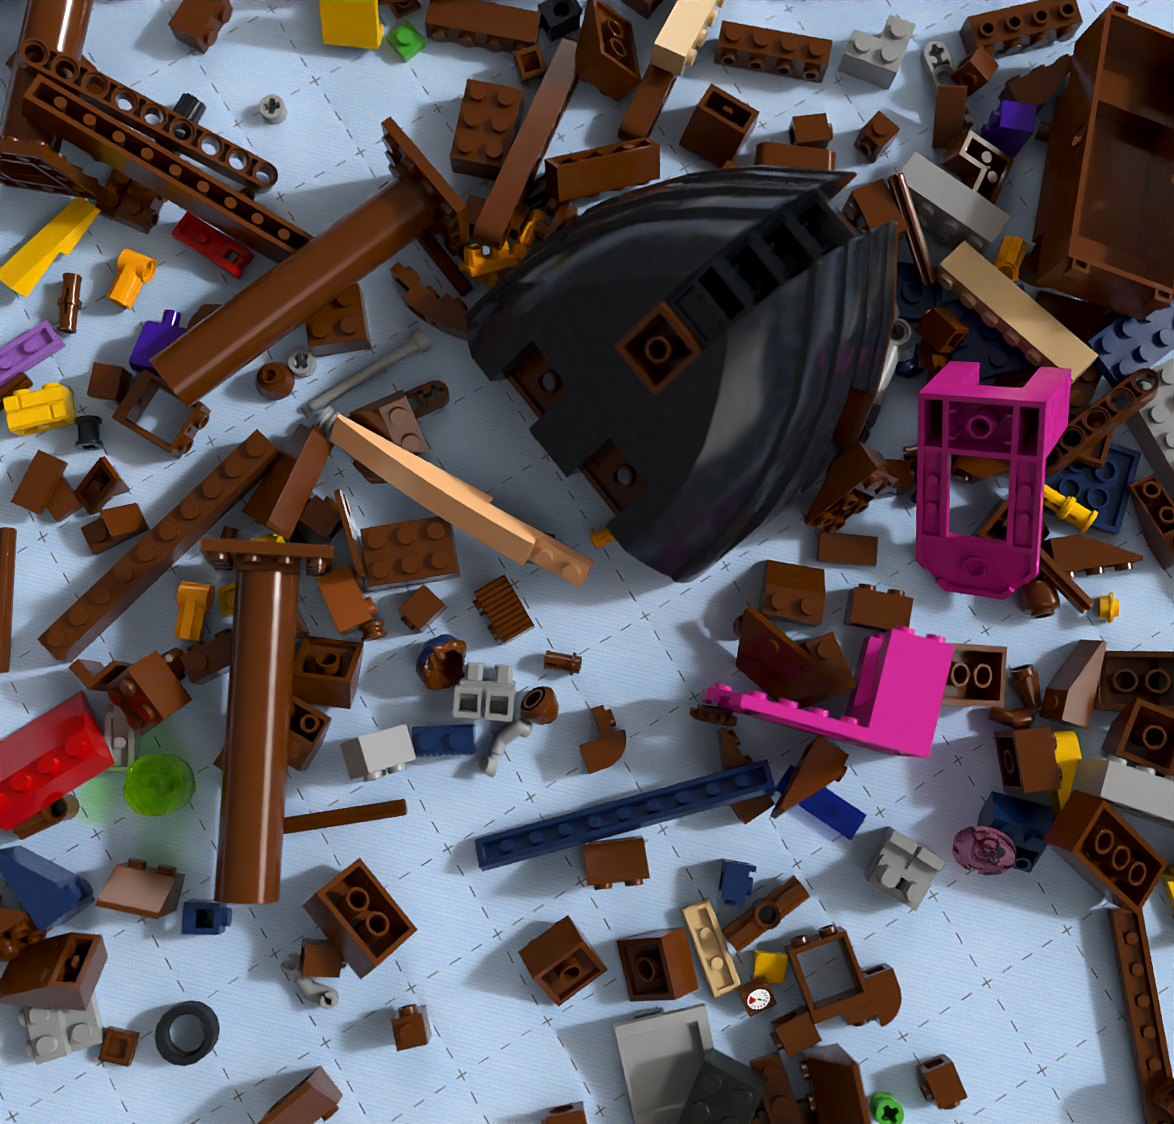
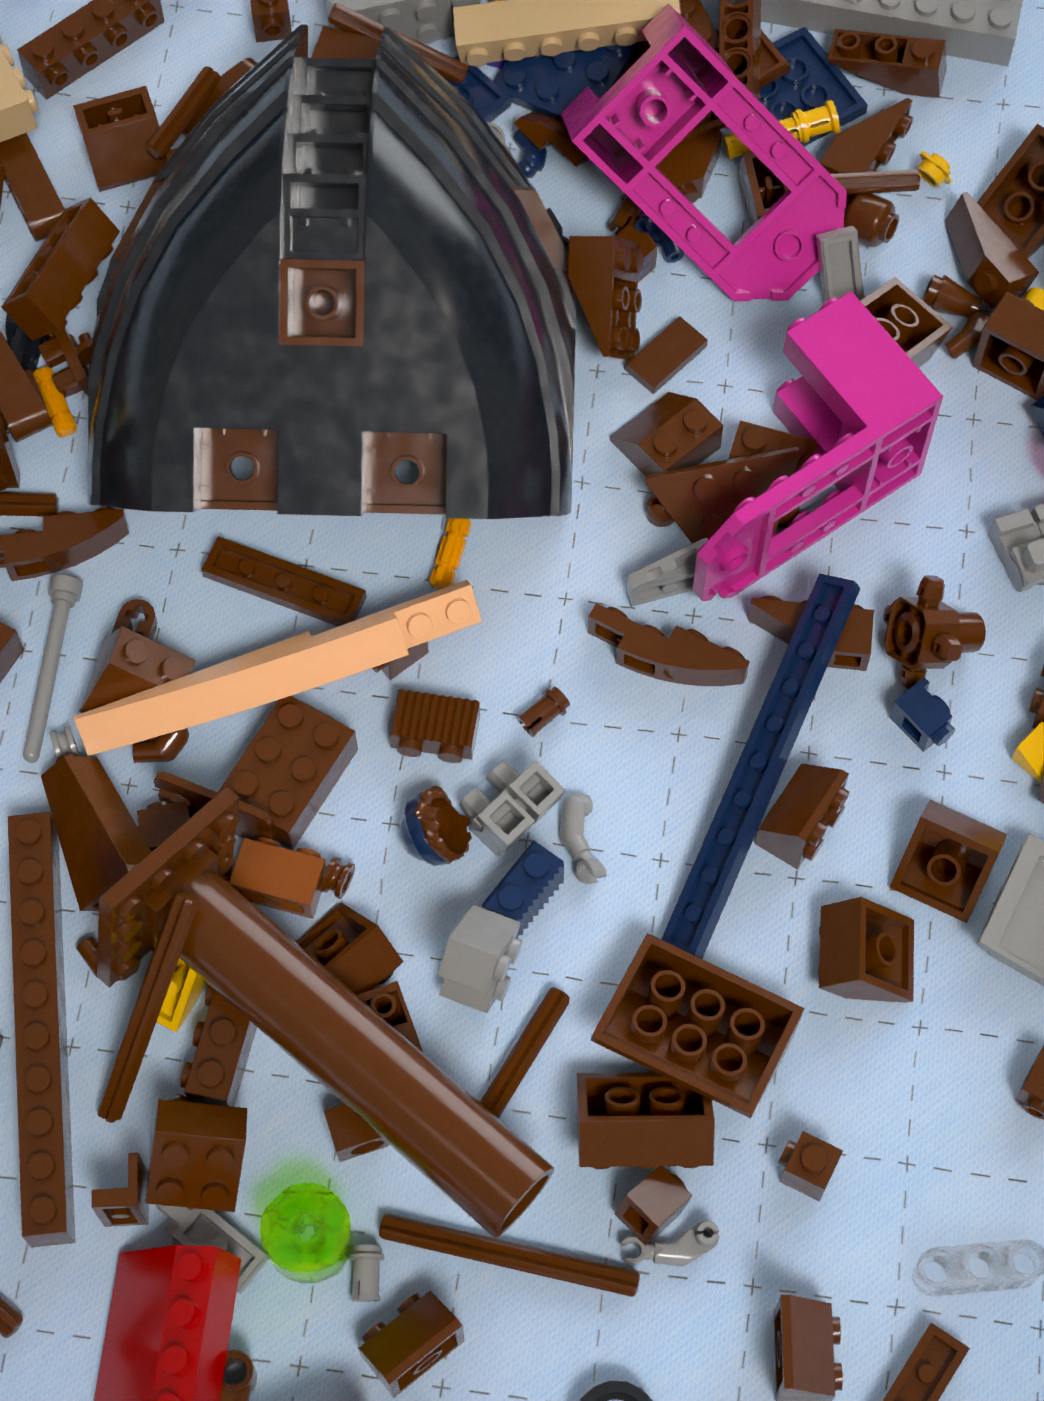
camera: 45 degrees left, 15 degrees down
(168, 830) = (366, 1272): none -> light grey pin
(193, 602) = (158, 1067): light orange piece -> none
(196, 921) = (501, 1281): dark blue brick -> none
(201, 600) = (148, 1006): none -> reddish brown axle
(243, 912) = (509, 1255): none -> reddish brown axle
(422, 609) = (359, 806): reddish brown brick -> none
(433, 907) = (698, 1025): none -> reddish brown slope
(486, 267) = (51, 460): light orange hips -> none
(521, 455) = (283, 583): none -> reddish brown plate
(540, 705) = (572, 764): reddish brown cone -> none
(605, 750) = (672, 731): reddish brown brick -> none
(658, 714) = (680, 659): none -> reddish brown slope
(708, 671) = (664, 577): none -> light grey wing
(711, 948) = (975, 797): tan tile -> none
(713, 715) = (729, 601): reddish brown gear -> none
(761, 147) = (183, 113): none -> reddish brown axle
(782, 901) = (981, 733): reddish brown piece -> none
(786, 847) = (928, 632): none -> reddish brown piece
(810, 131) = (206, 52): reddish brown brick -> none
(815, 770) = (870, 549): reddish brown slope -> none
(828, 808) = (901, 576): clear blue tile -> none
(877, 609) = (752, 372): reddish brown brick -> none
(941, 329) = (522, 96): reddish brown brick -> none
(988, 607) = (840, 263): none -> light grey tile

